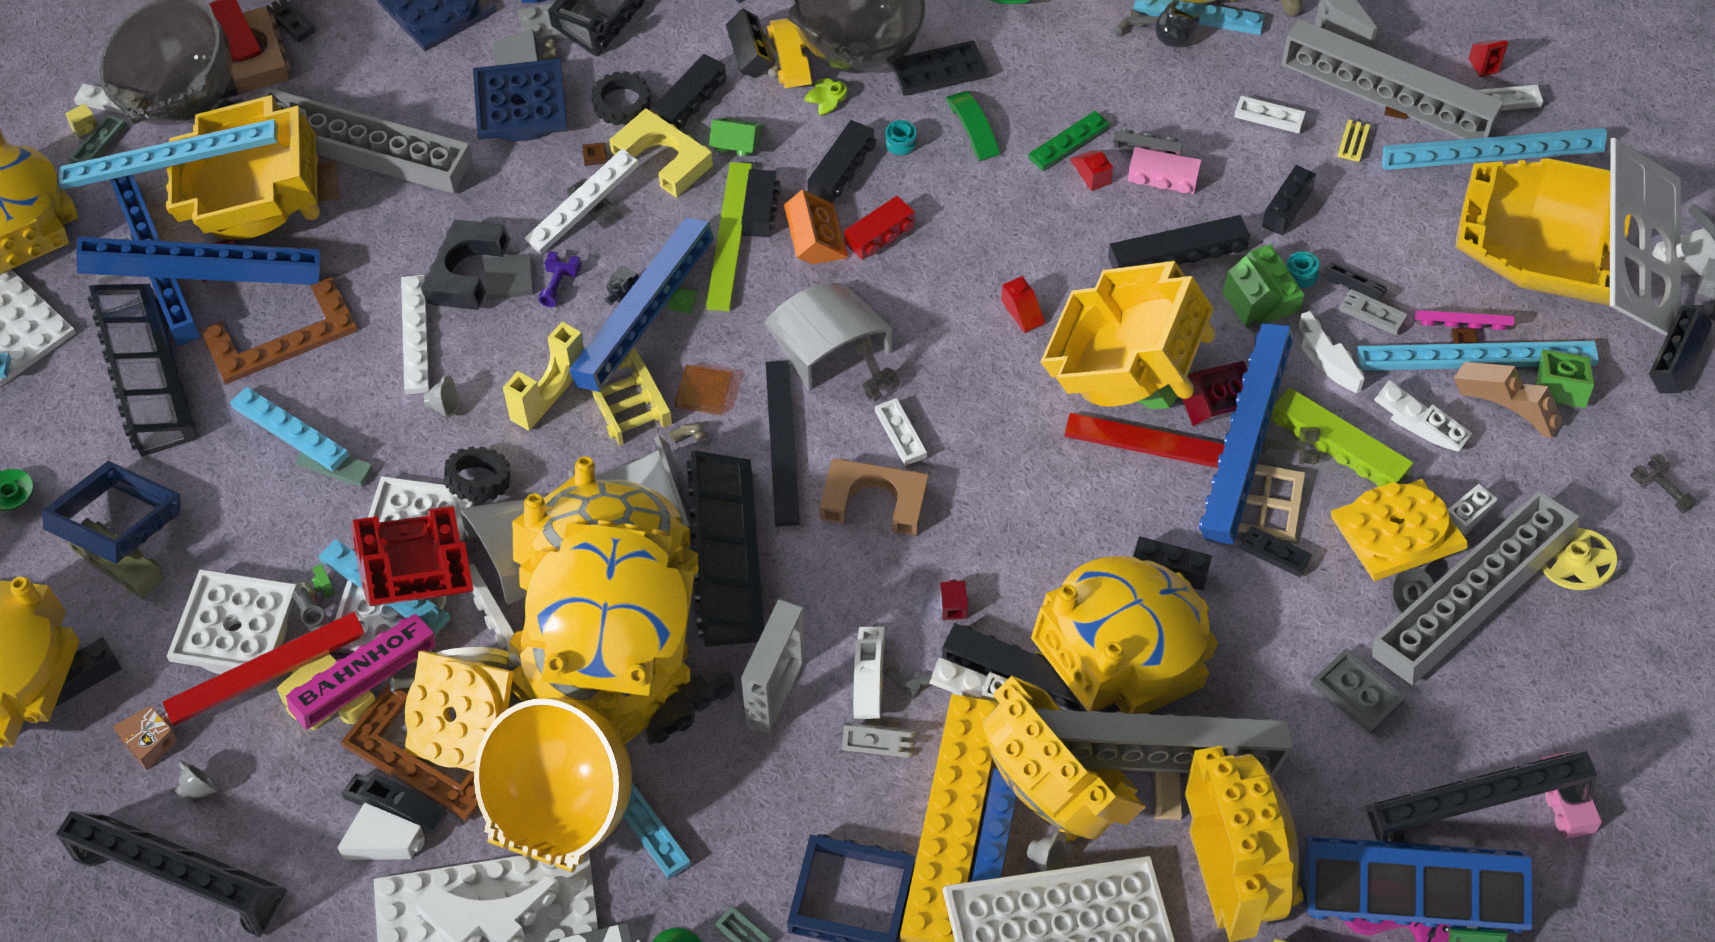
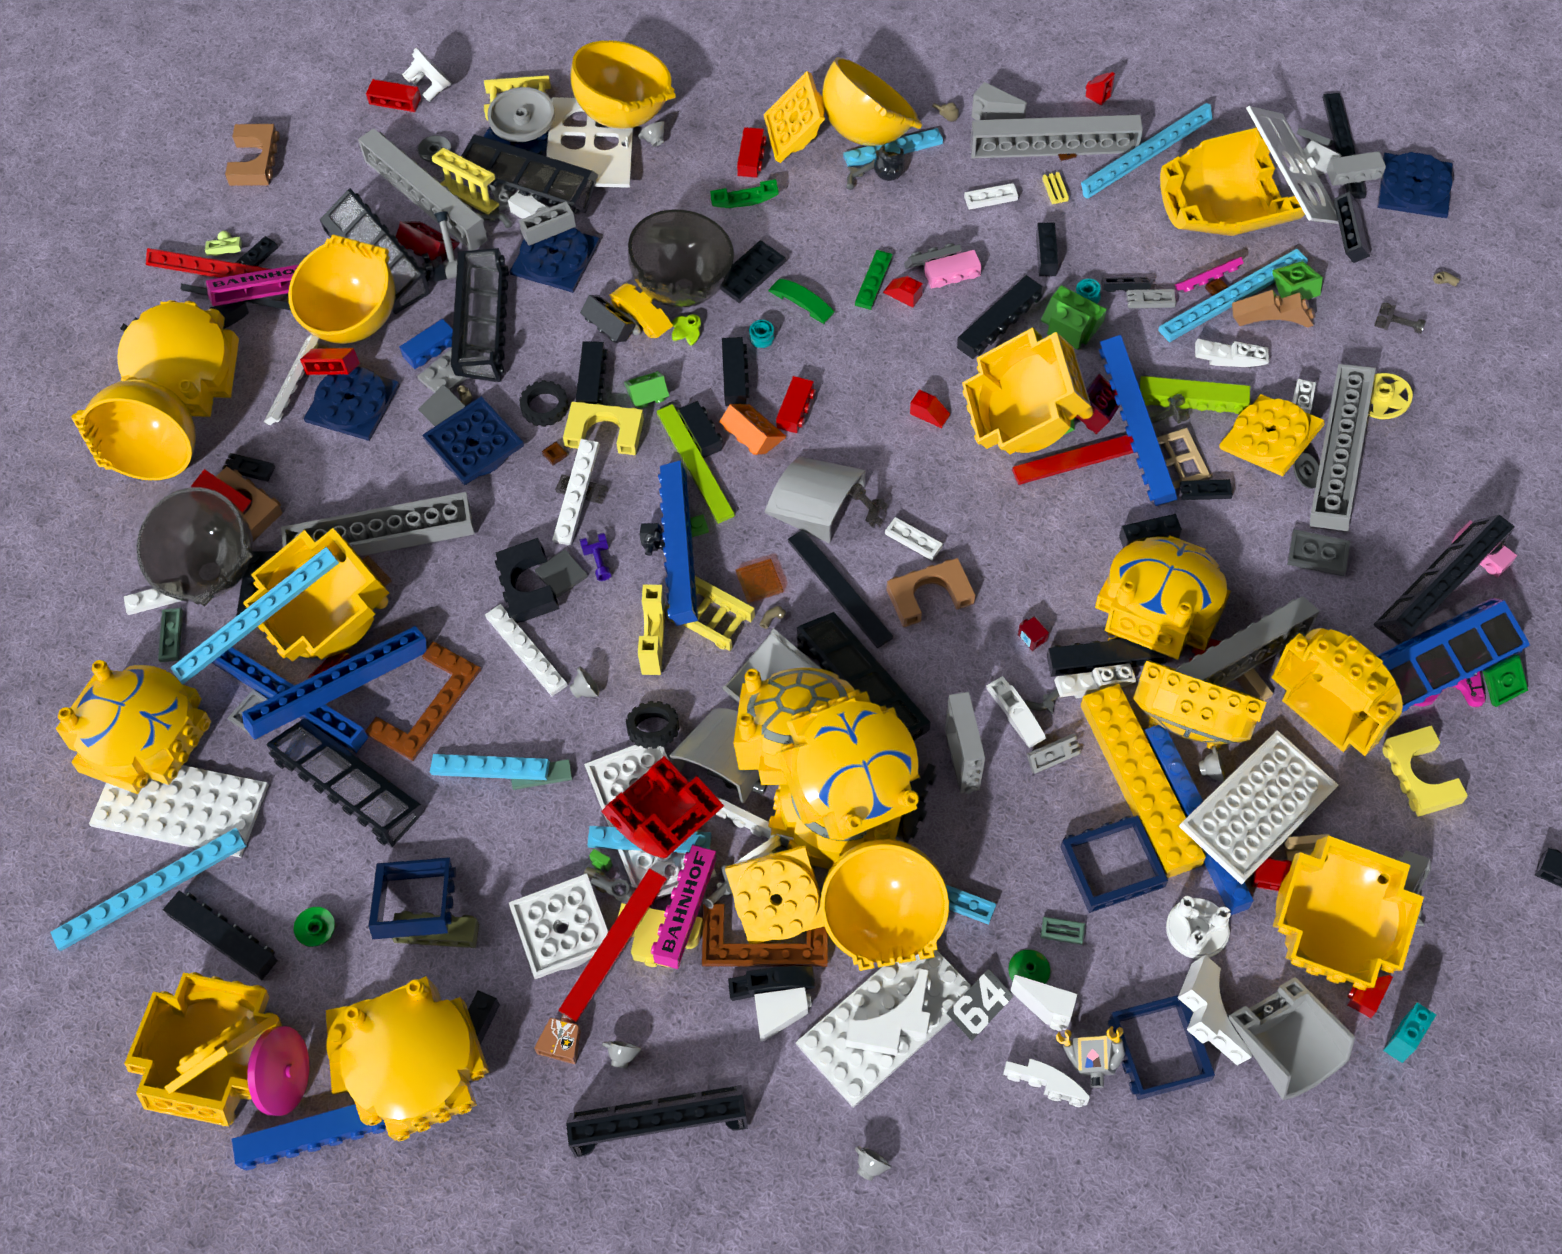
camera: 30 degrees left, 5 degrees up
(81, 120) = (147, 625): light yellow plate -> none
(1330, 359) = (1149, 344): white slope -> none
(1517, 97) = (1136, 107): white plate -> none

